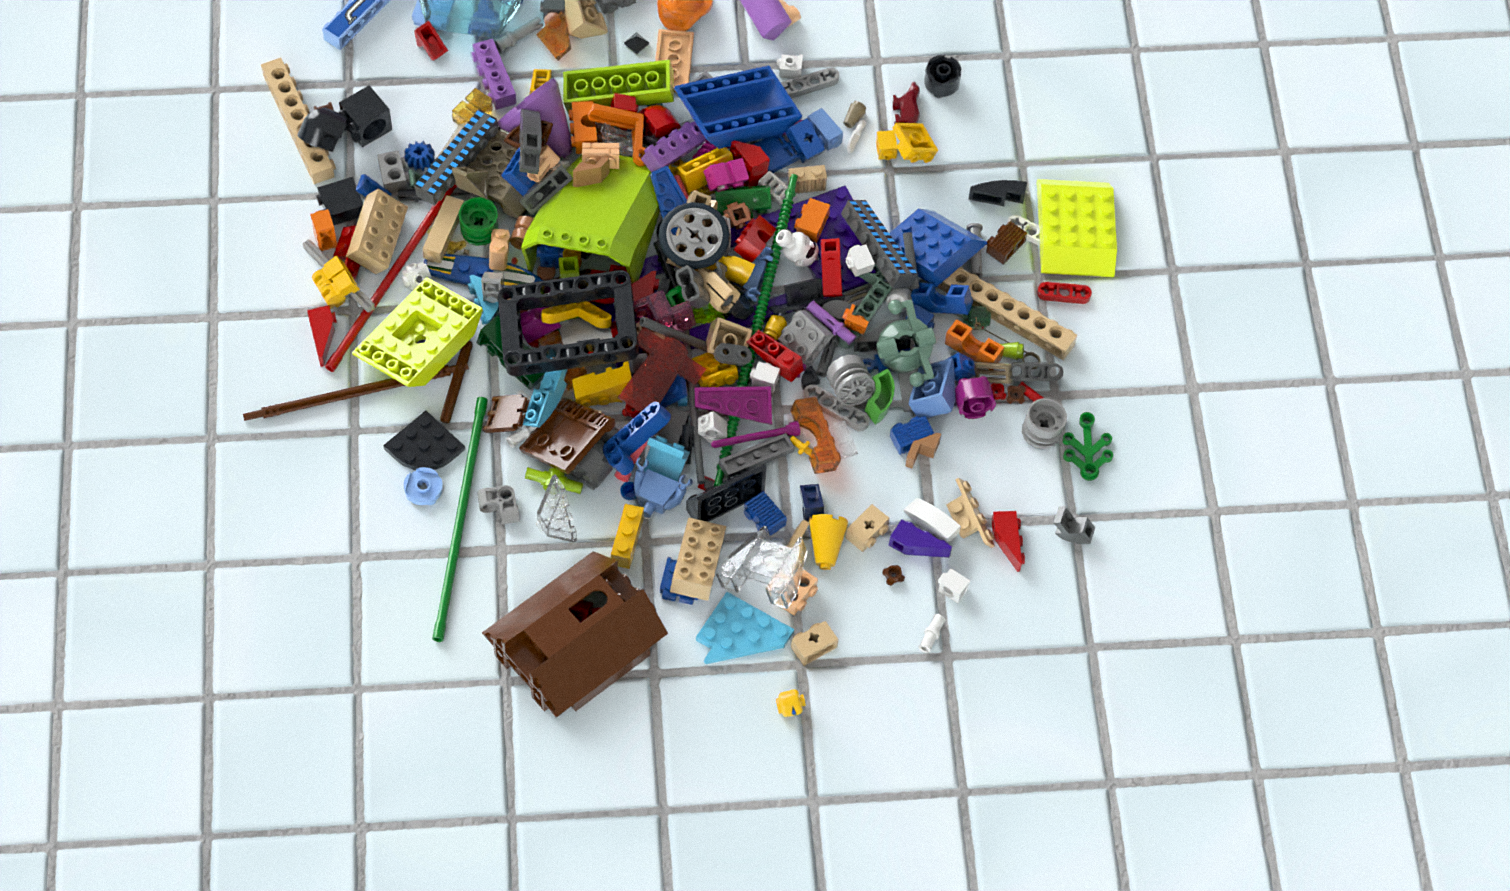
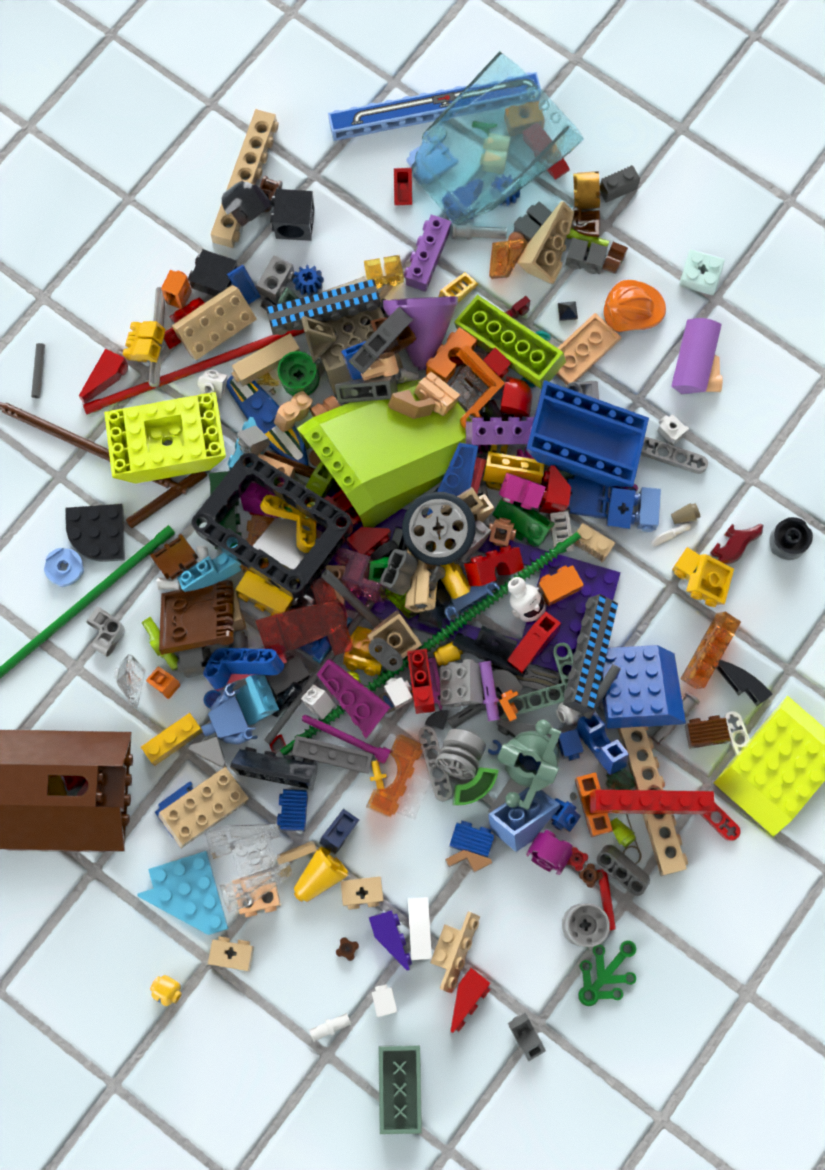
camera: 45 degrees right, 15 degrees up
(263, 369) = (38, 370): none -> dark grey piece
(583, 503) = (163, 682): none -> orange slope
(601, 60) = (519, 308): none -> dark red plate
(664, 523) = (210, 750): none -> light grey slope
(859, 260) = (558, 656): white brick -> none
(957, 186) = (710, 650): none -> clear orange brick
(1008, 380) = (588, 842): dark tan tile -> none
(1013, 306) = (652, 802): none -> red brick
(1020, 628) = (400, 1089): none -> sand green brick

